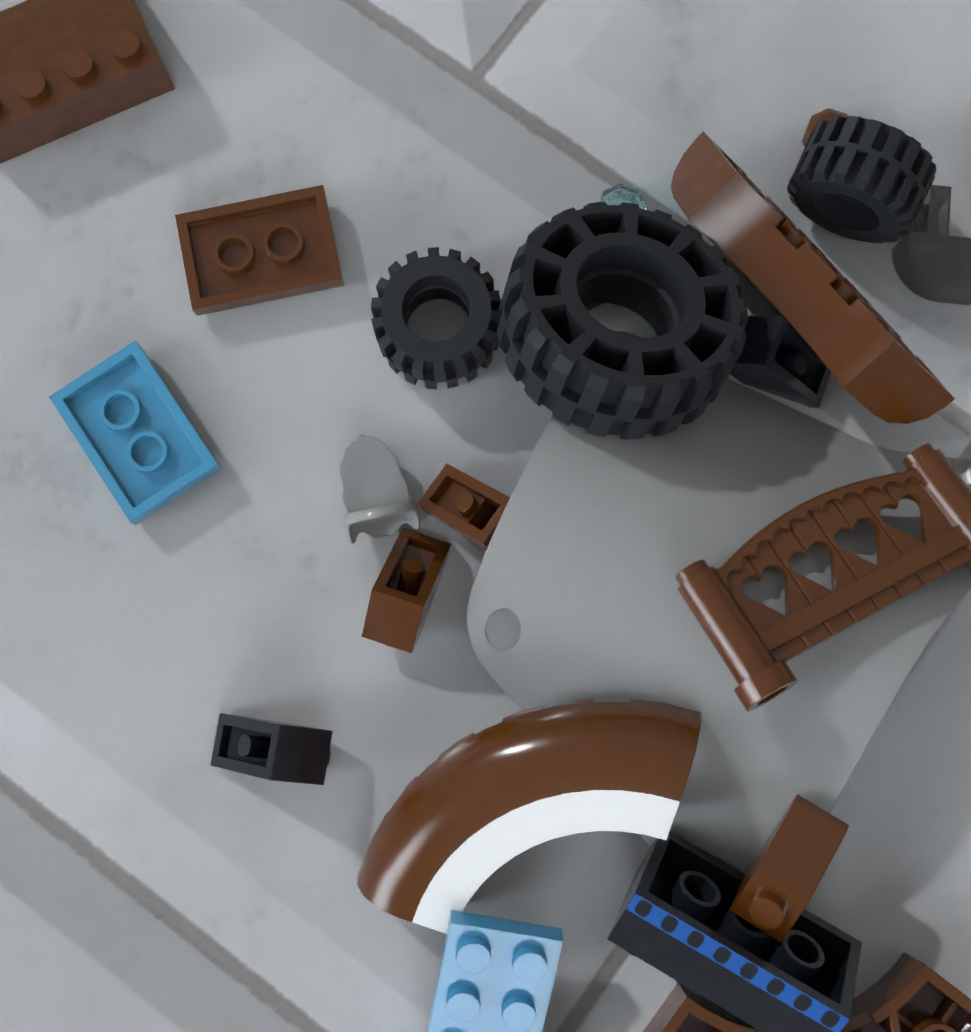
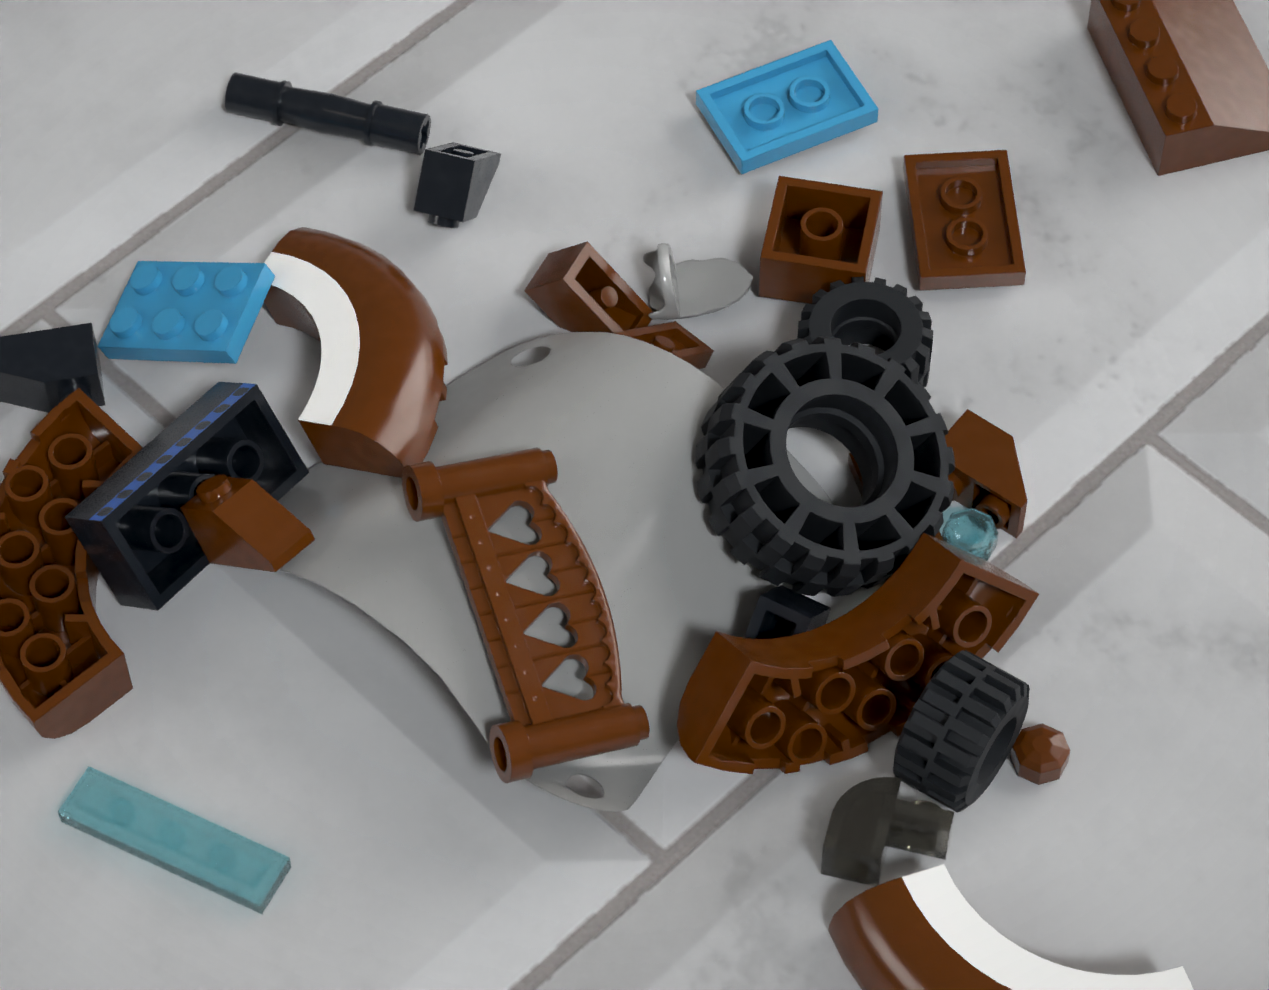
camera: 95 degrees right, 25 degrees down
(192, 908) = (328, 113): none -> black piece
(317, 371) = (817, 238): none -> reddish brown brick
(552, 191) = (987, 472): none -> reddish brown slope

